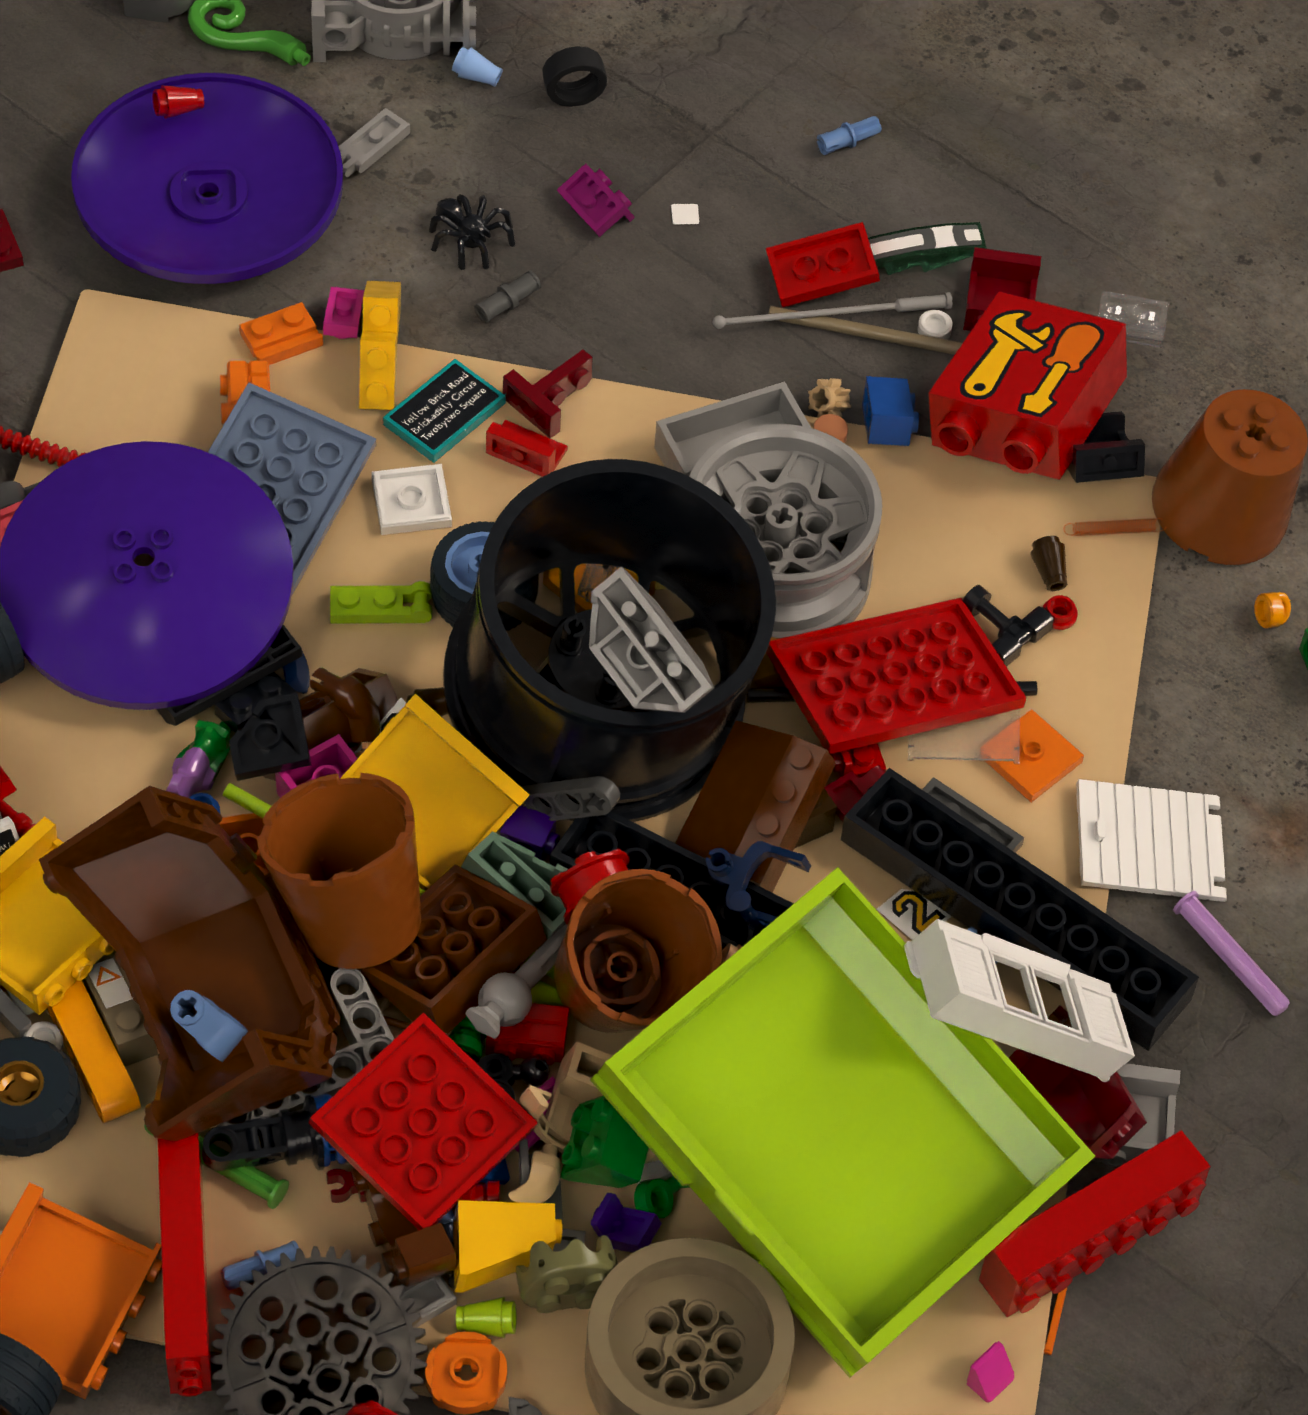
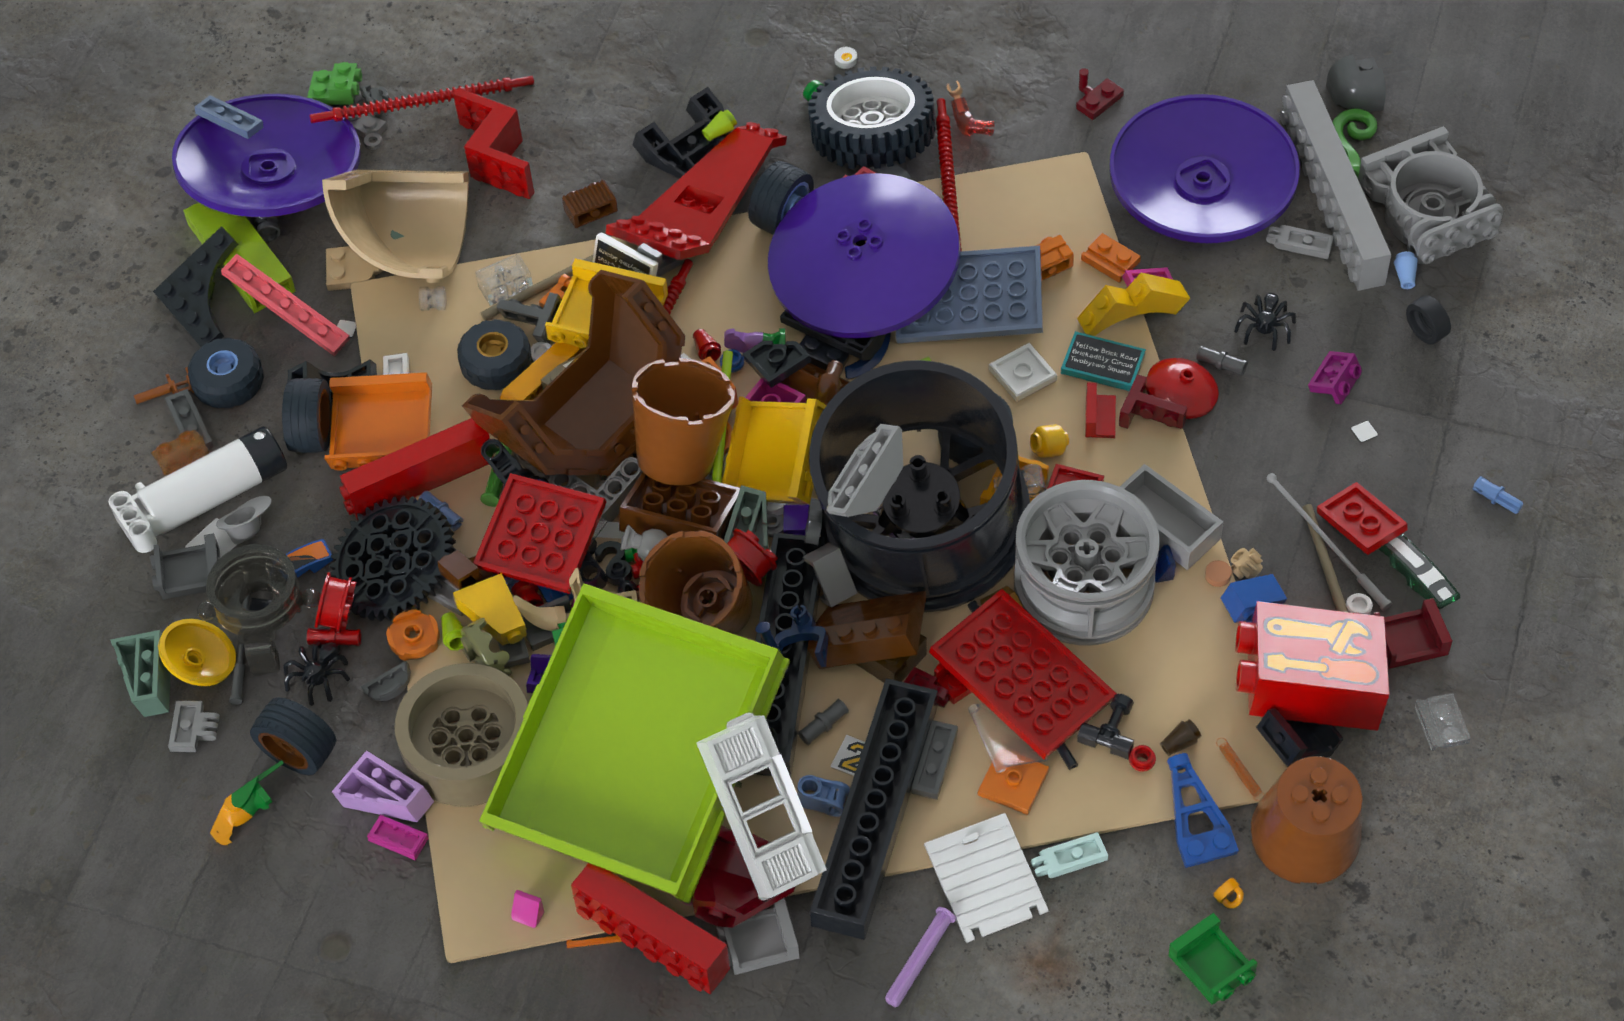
camera: 75 degrees right, 0 degrees up
(174, 101) = (1245, 123): red cone -> none
(211, 1025) = (565, 410): medium blue piece -> none
(319, 65) = (1335, 186): none -> light grey brick
(526, 345) = (1183, 384): none -> red dish
(645, 808) = (831, 574): none -> light grey panel
(1158, 741) = (1070, 856): none -> light aqua hinge
(1198, 597) = (1203, 846): none -> blue plate

